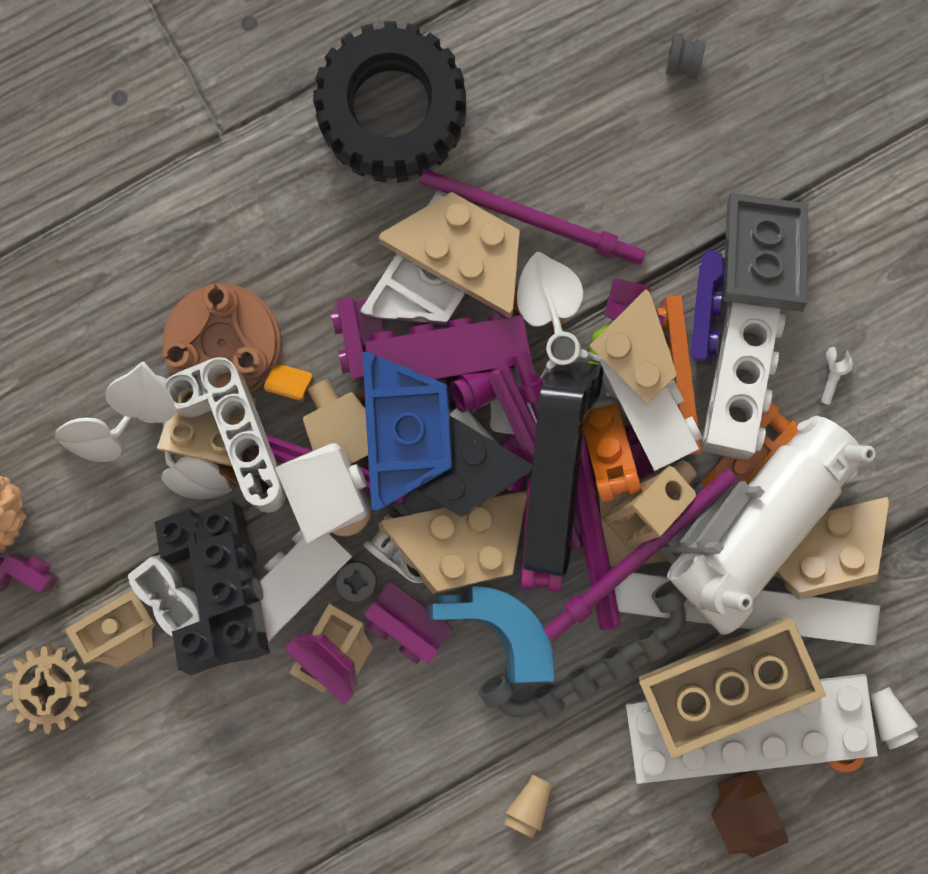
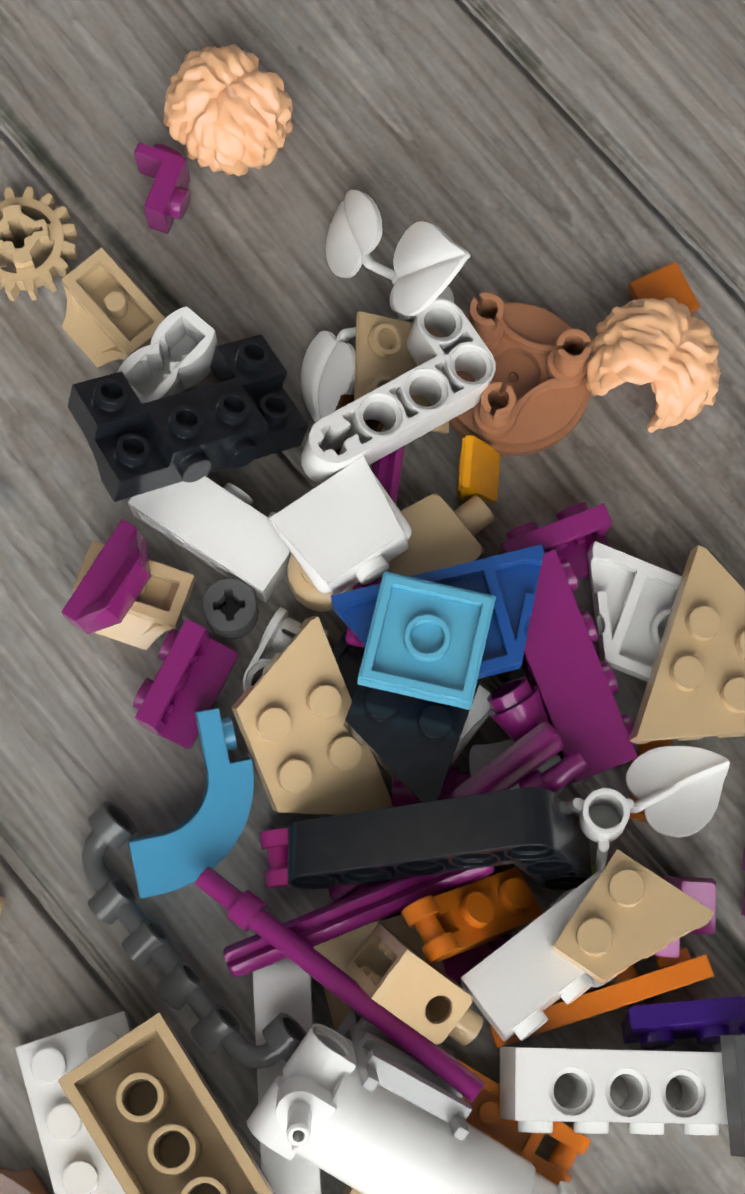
camera: 75 degrees right, 10 degrees down
(181, 218) = (663, 284): none -> orange tile
(225, 236) = (658, 346): none -> light nougat hair
(418, 448) = (426, 640): none -> medium azure tile

